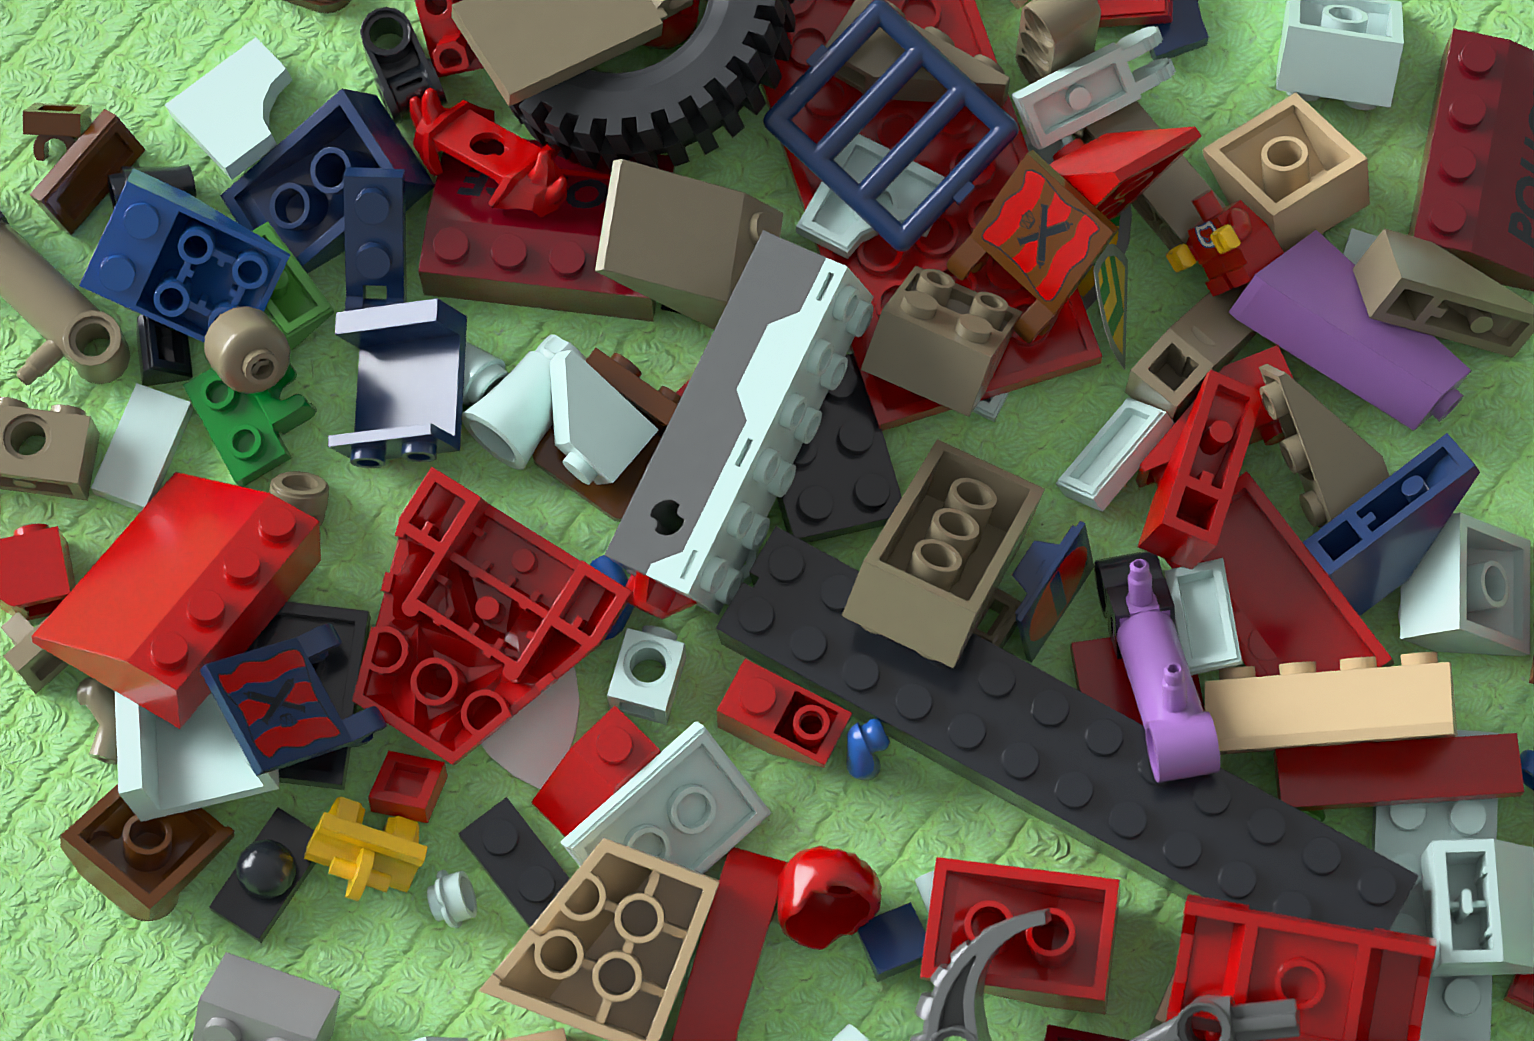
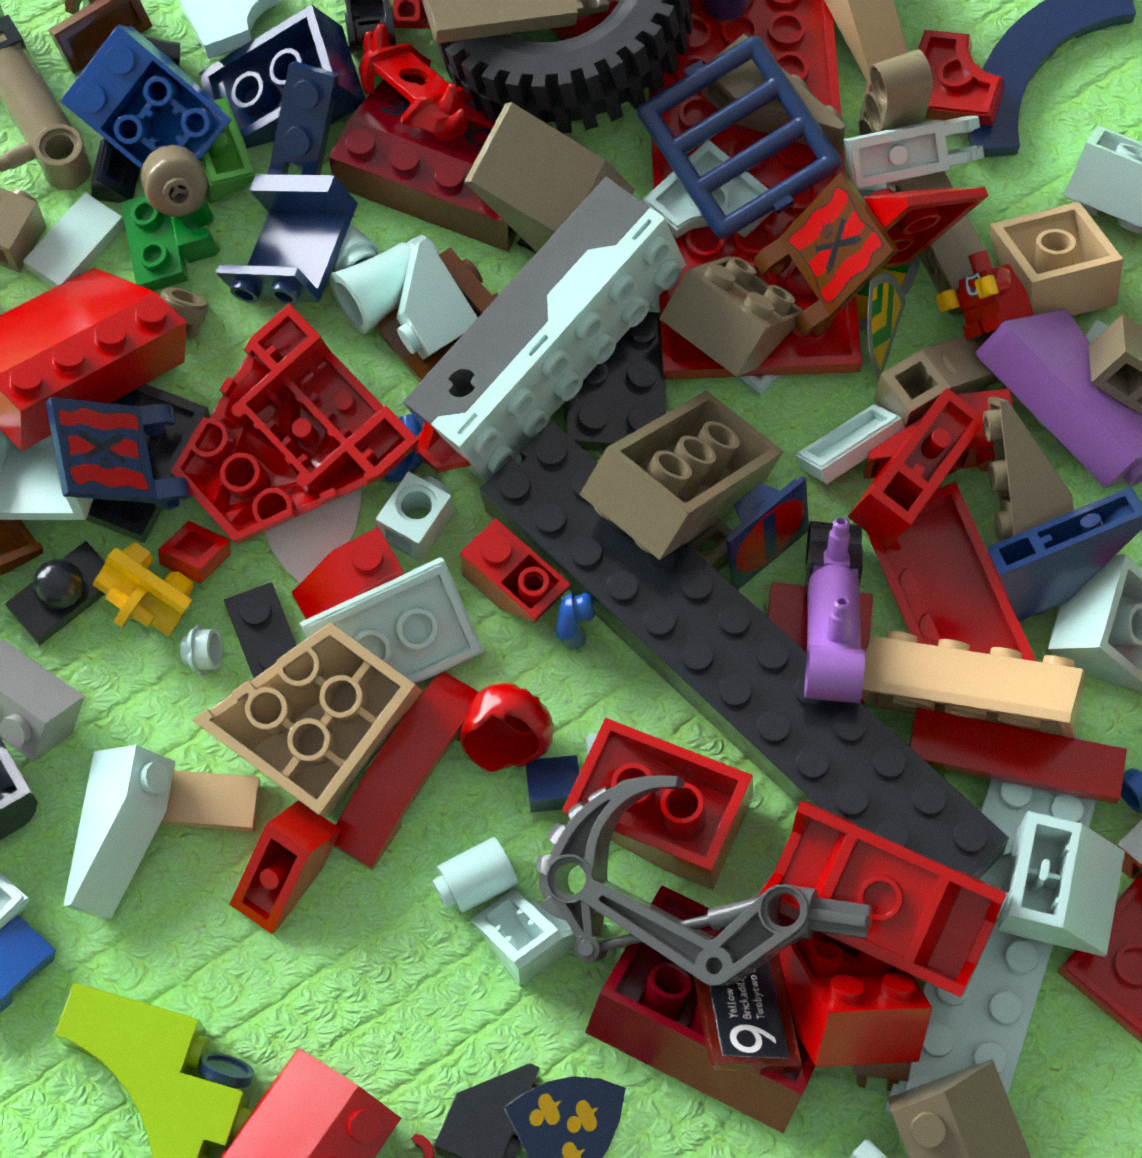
camera: 15 degrees right, 5 degrees down
(1204, 616) = (886, 587): light aqua tile -> none

